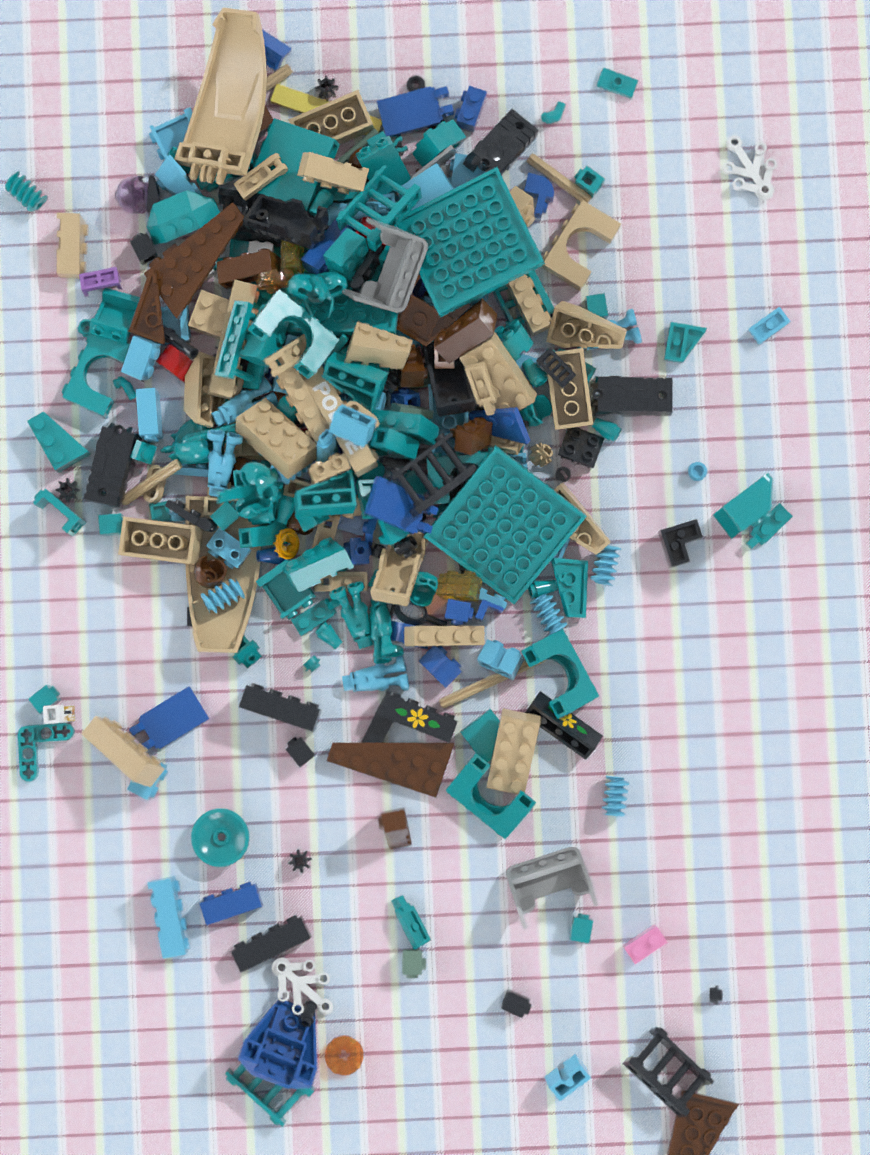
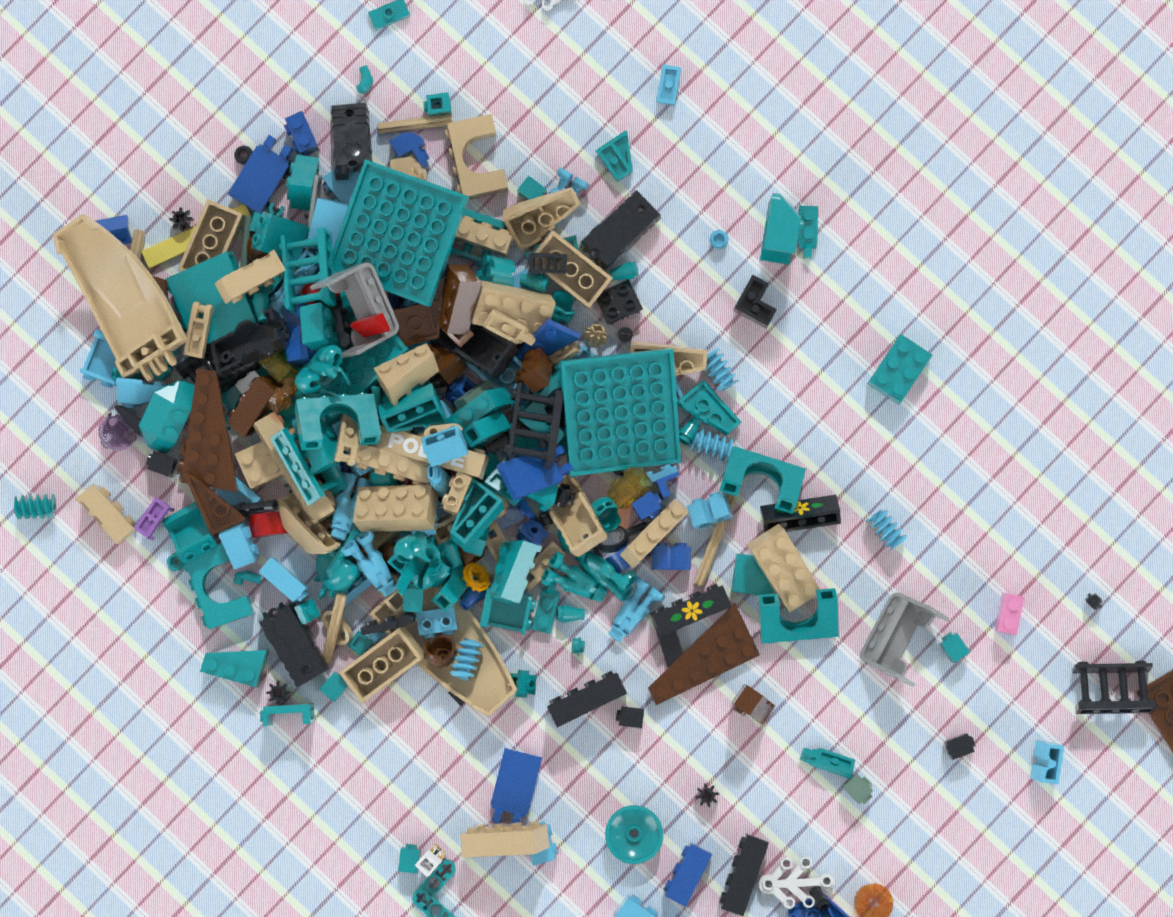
camera: 40 degrees left, 0 degrees up
(384, 289) = (371, 325): none -> red slope
(737, 690) = (899, 369): none -> teal brick

